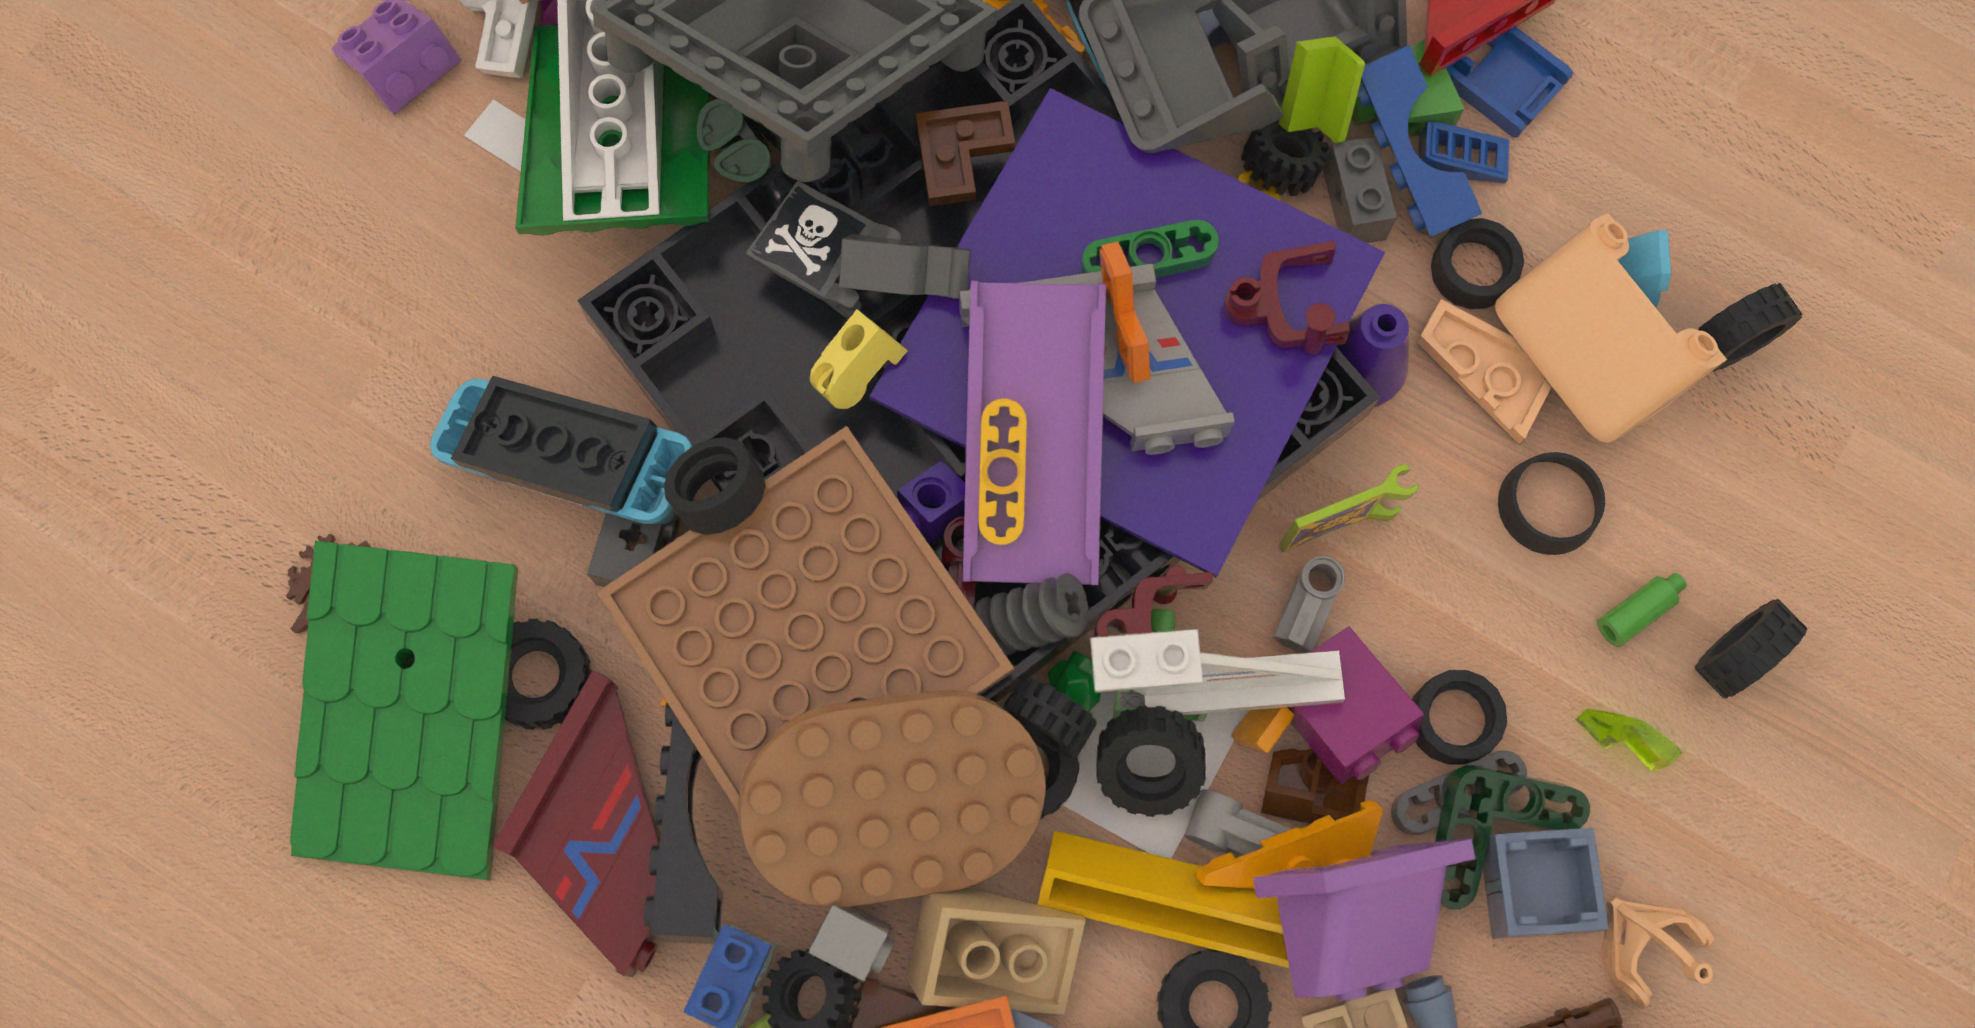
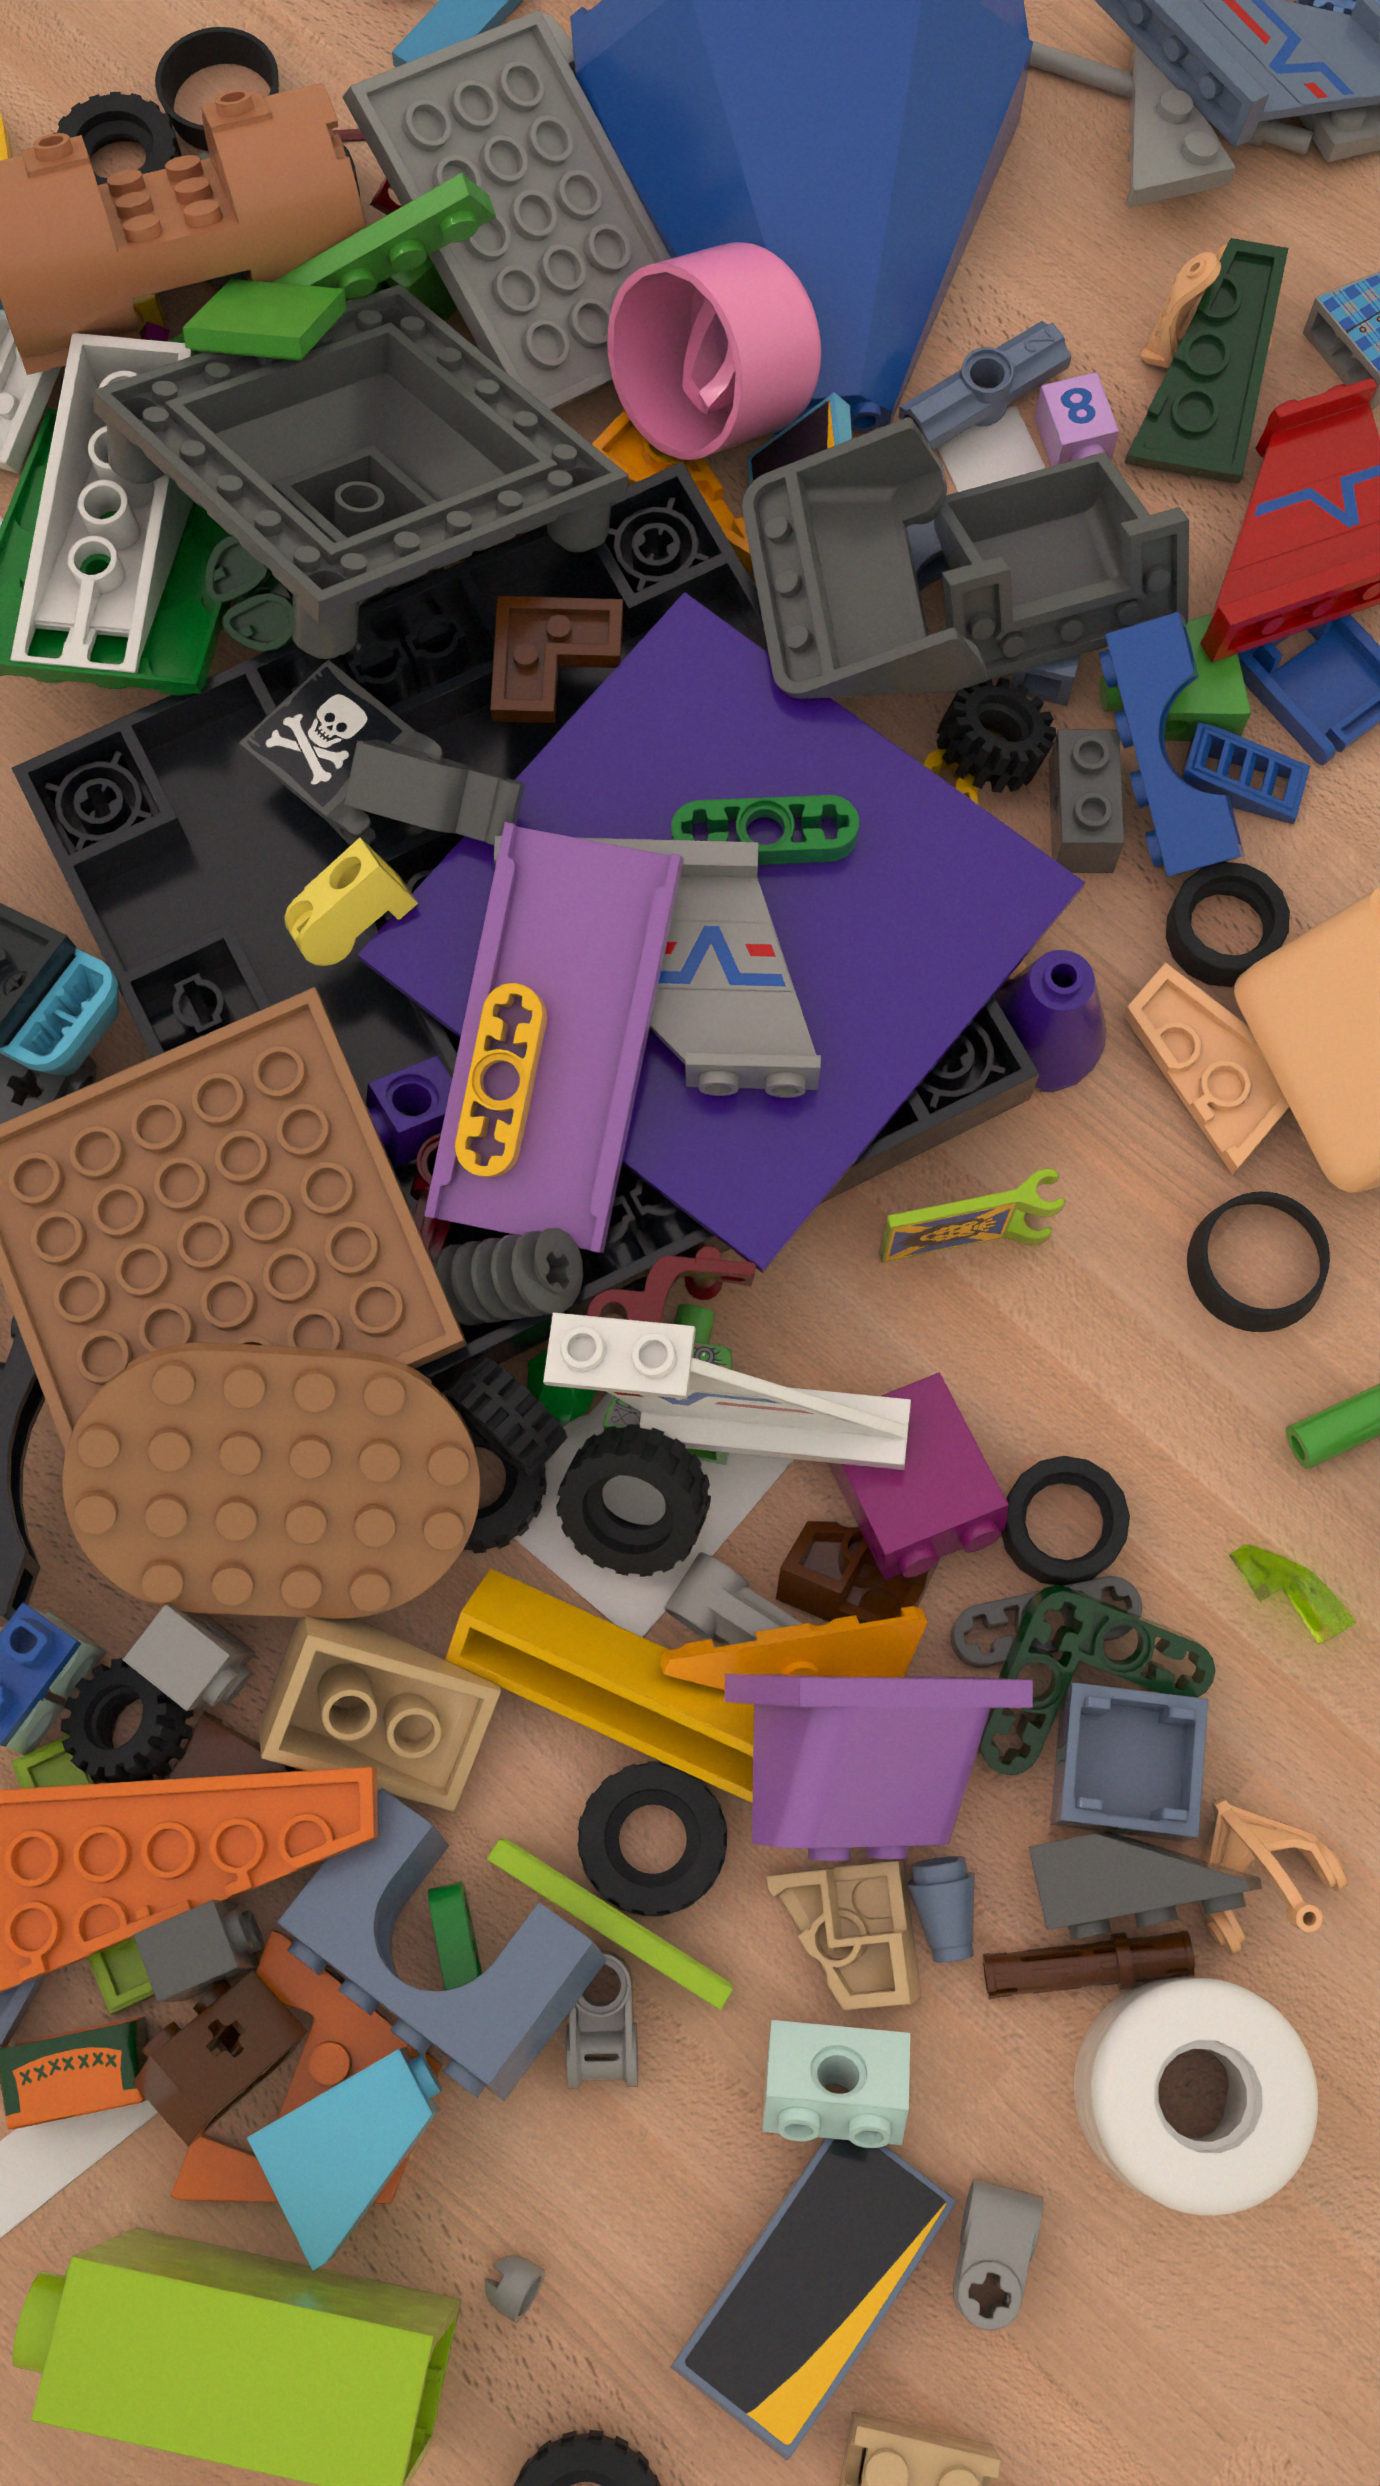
camera: 15 degrees right, 0 degrees up
(730, 505) = (138, 1061): black tyre -> none
(1129, 335) = (700, 898): orange tile -> none
(1262, 728) = (798, 1486): light orange tile -> none
(1264, 304) = (901, 919): dark red piece -> none
(1309, 608) = (895, 1340): light grey piece -> none
(1322, 87) = (1052, 651): lime panel -> none
(1553, 969) = (1112, 1876): none -> dark grey slope

